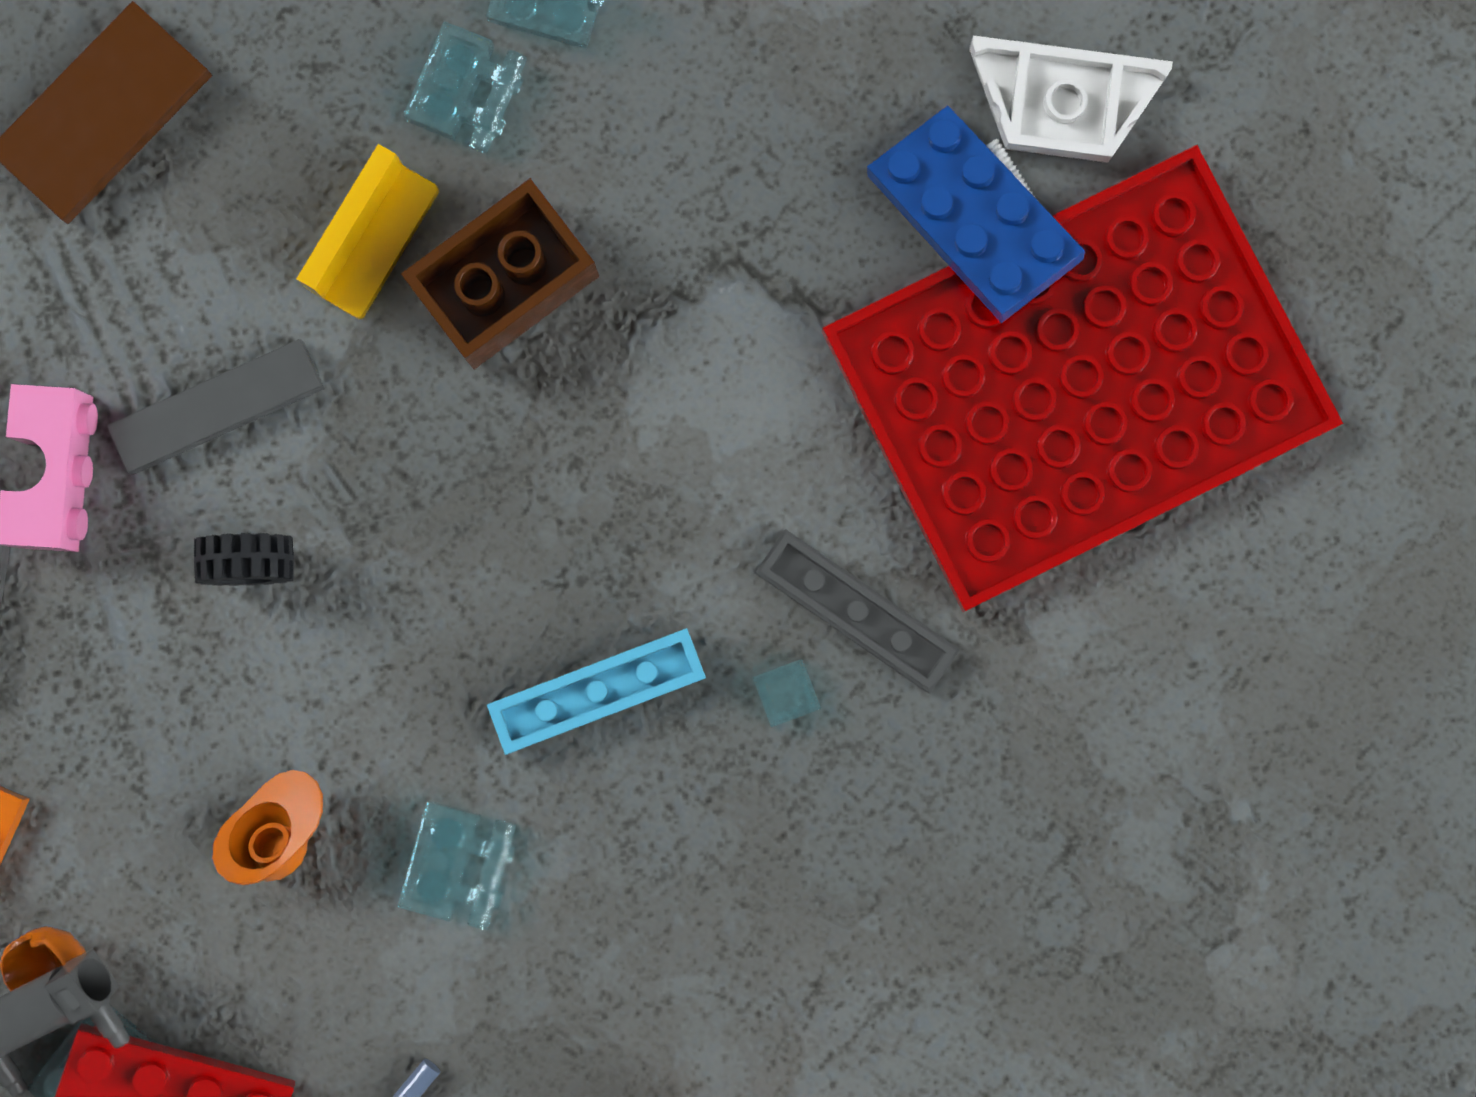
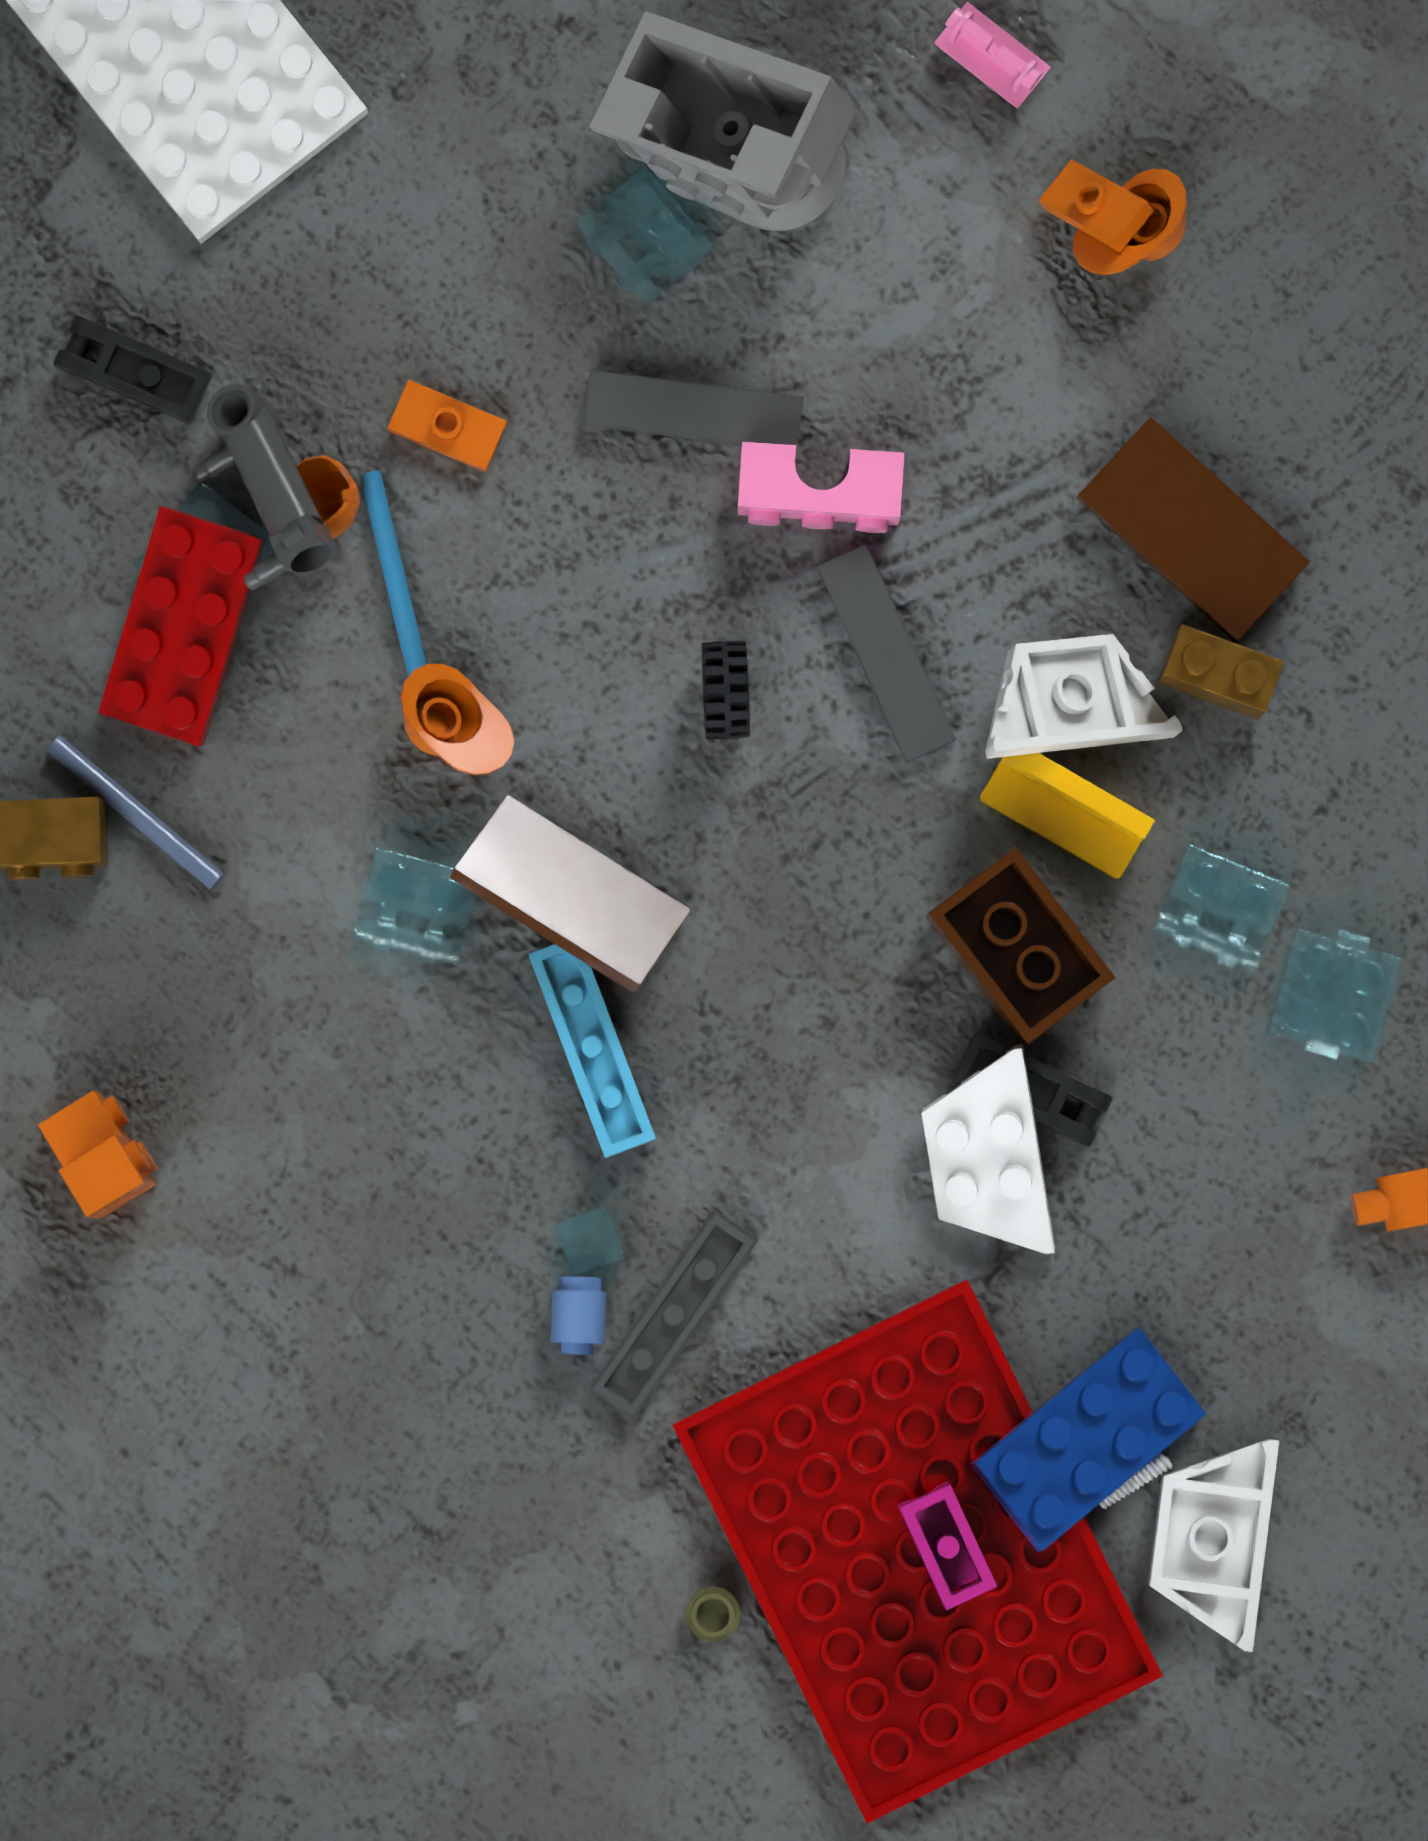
camera: 90 degrees right, 0 degrees up
(119, 892) = (393, 570): none -> dark azure piece
(237, 84) = (1220, 672): none -> pearl gold brick
(259, 224) = (1073, 698): none -> white wing
(445, 713) = (570, 894): none -> tile
(638, 269) = (1047, 1091): none -> pearl dark grey plate
(702, 305) = (989, 1156): none -> white wing
(859, 703) = (578, 1314): none -> medium blue brick
(1084, 340) = (947, 1545): none -> dark pink brick
(1144, 572) = (712, 1614): none -> olive plate

